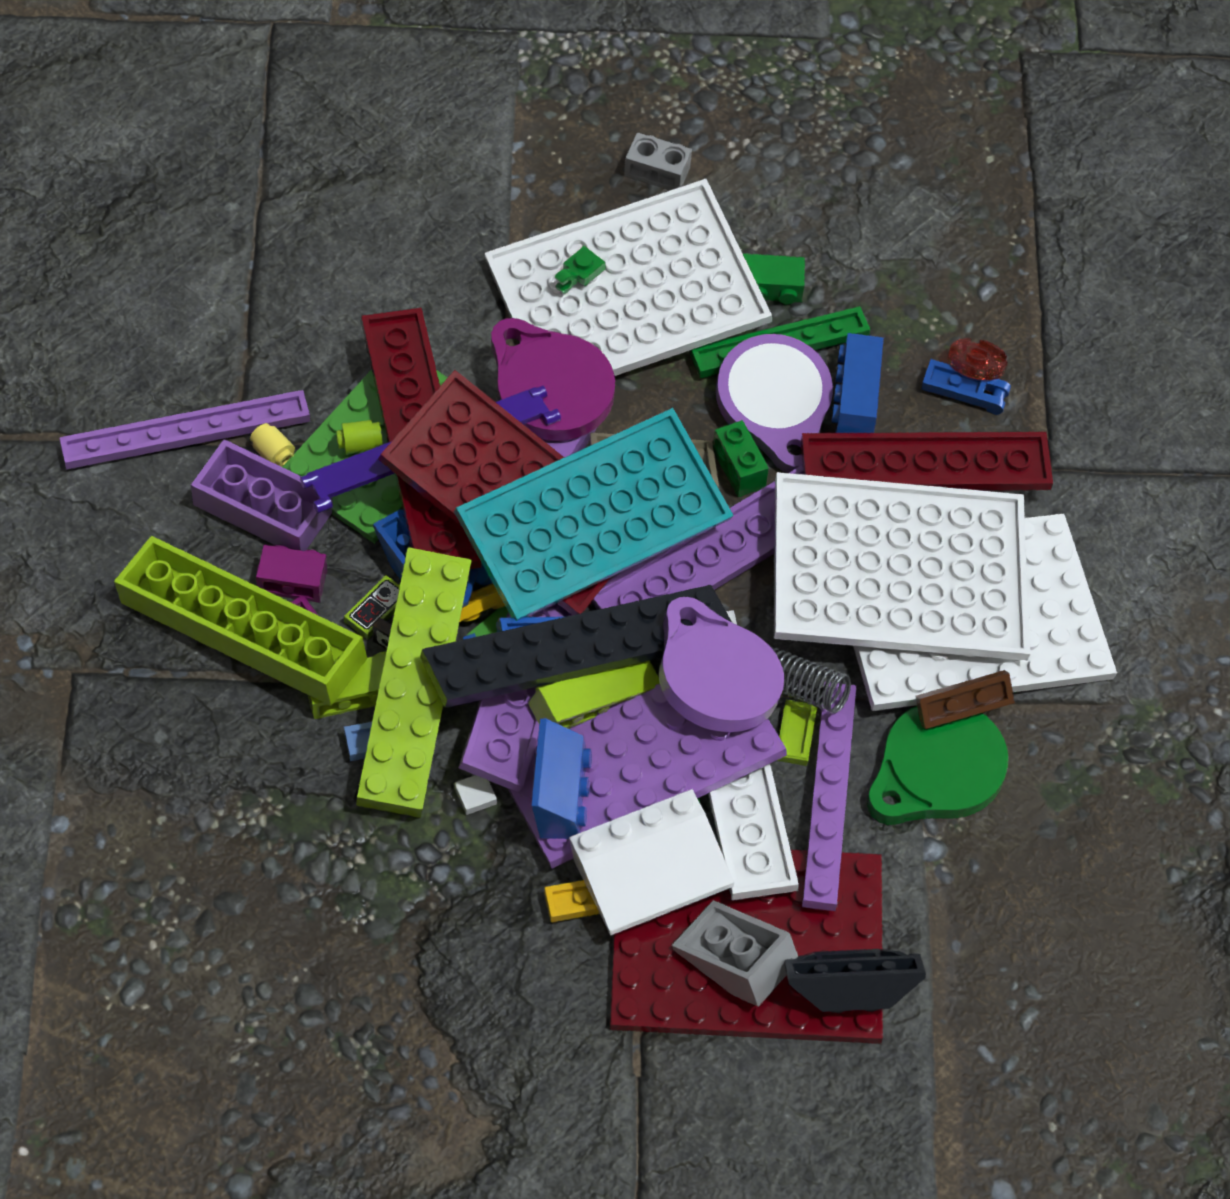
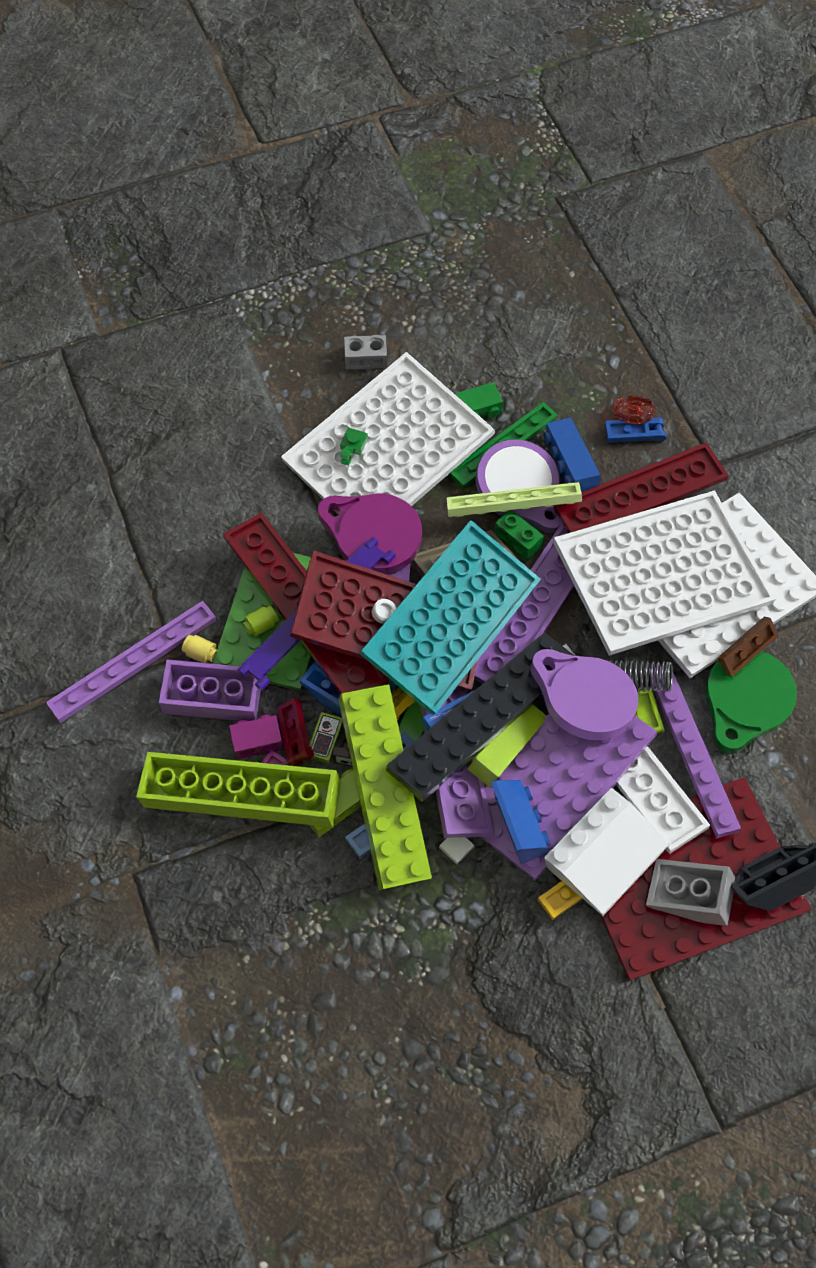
camera: 20 degrees left, 5 degrees up
(341, 584) = (294, 732): none -> dark red plate
(508, 471) = (383, 610): none -> white tile
(751, 409) = (514, 499): none -> yellowish green plate

